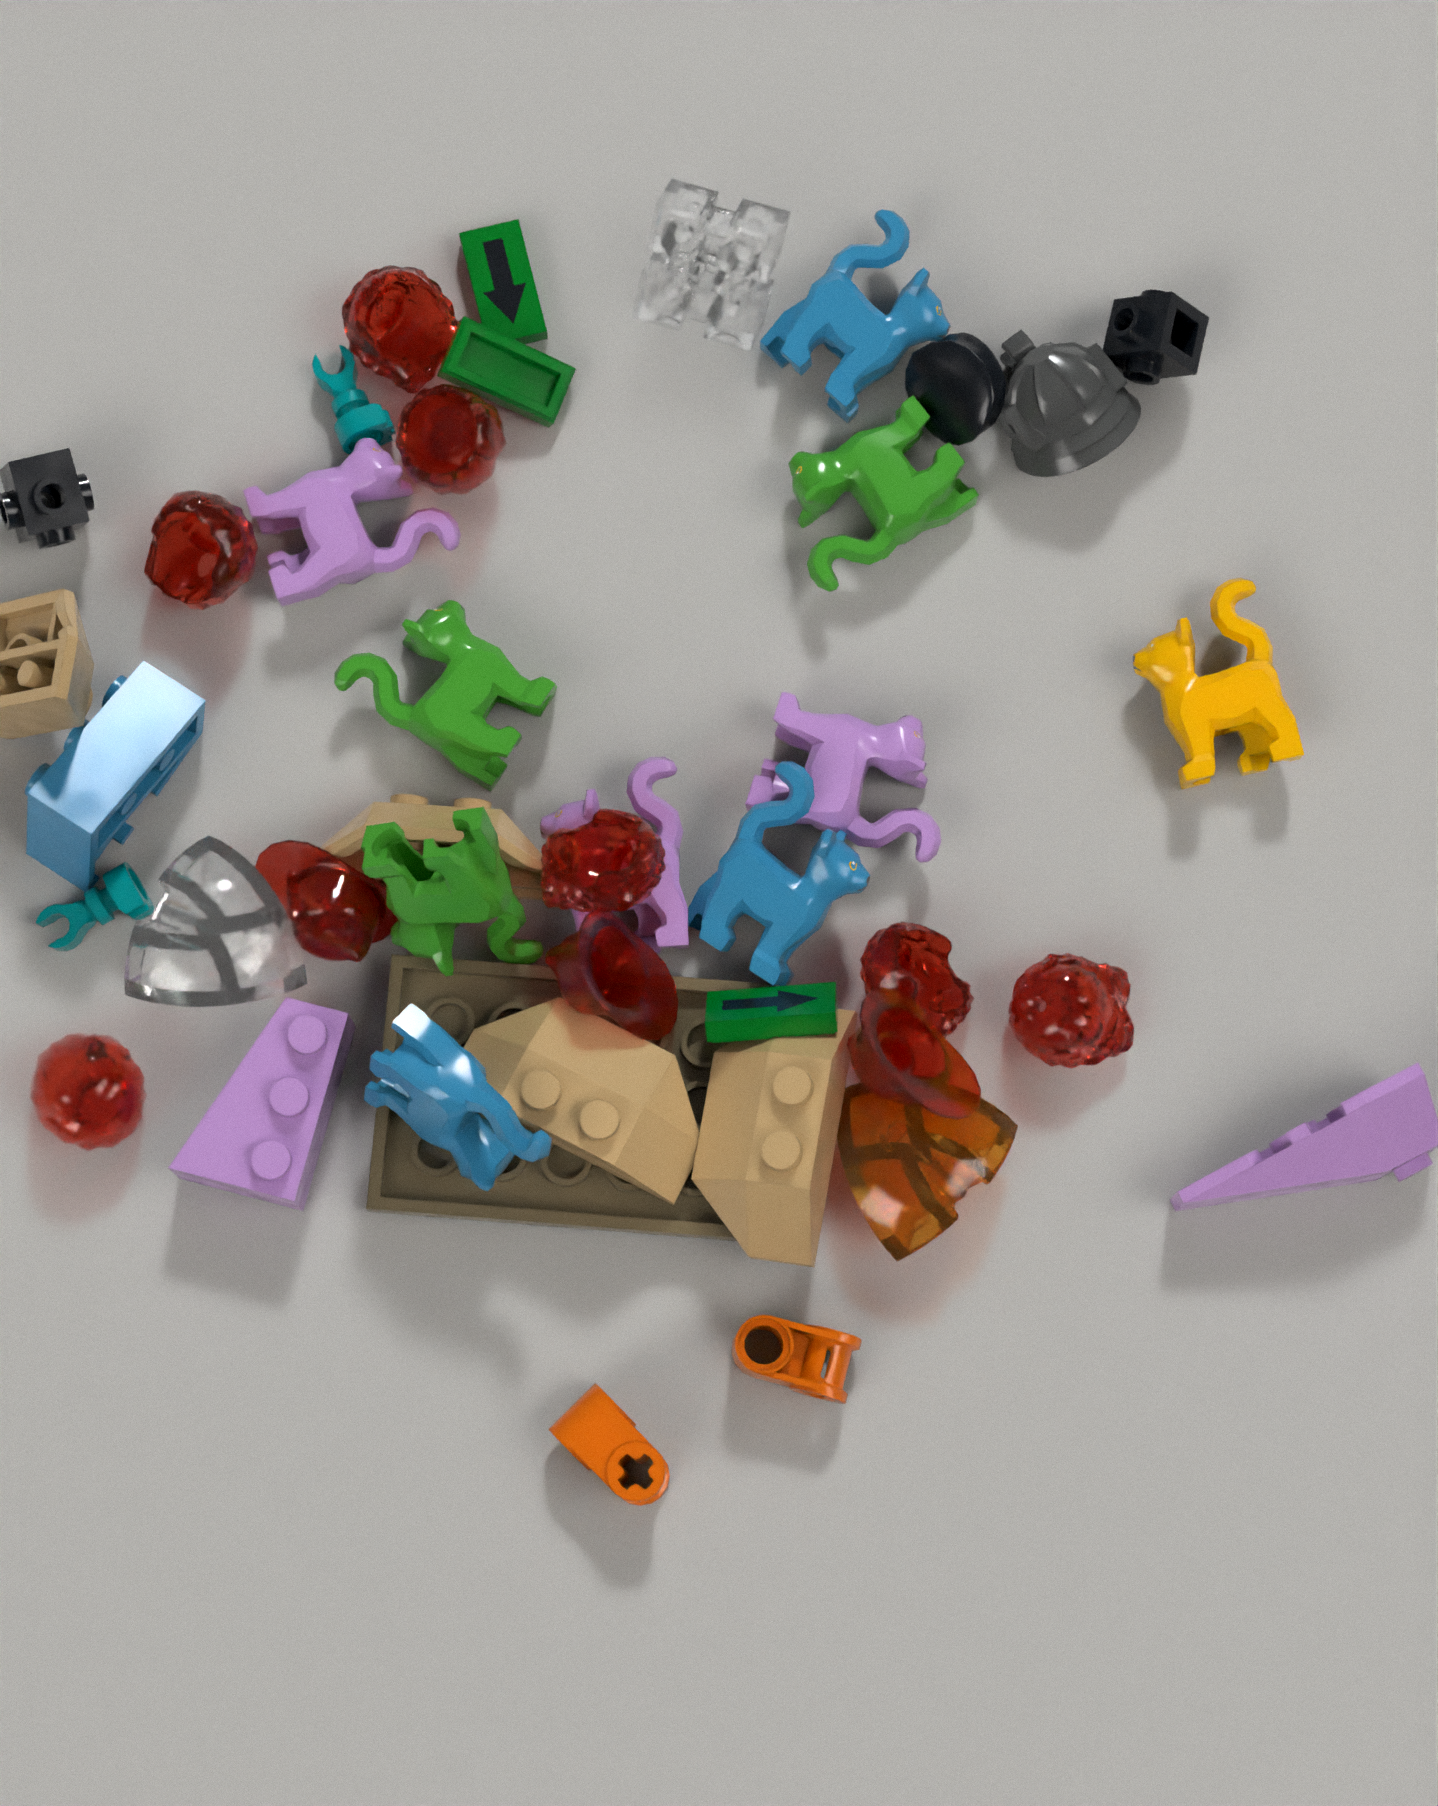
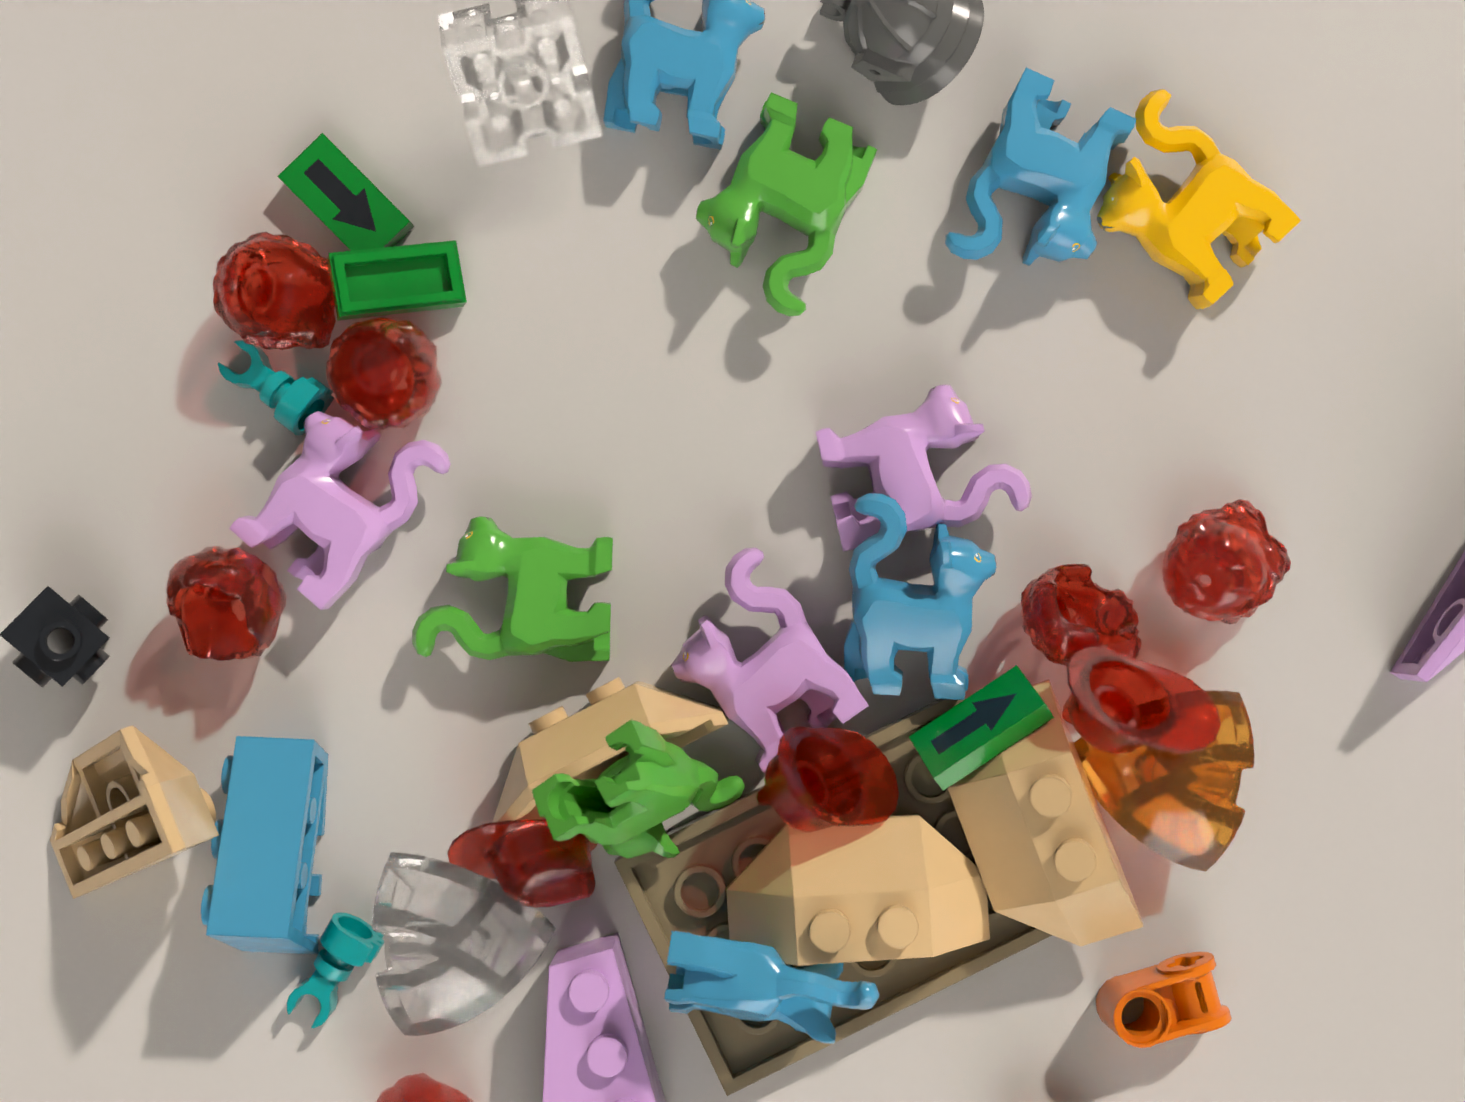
camera: 30 degrees left, 10 degrees up
(602, 863) = (759, 692): clear red hair -> none
(957, 386) = (805, 60): black piece -> none
(1113, 588) = (1043, 167): none -> dark azure animal

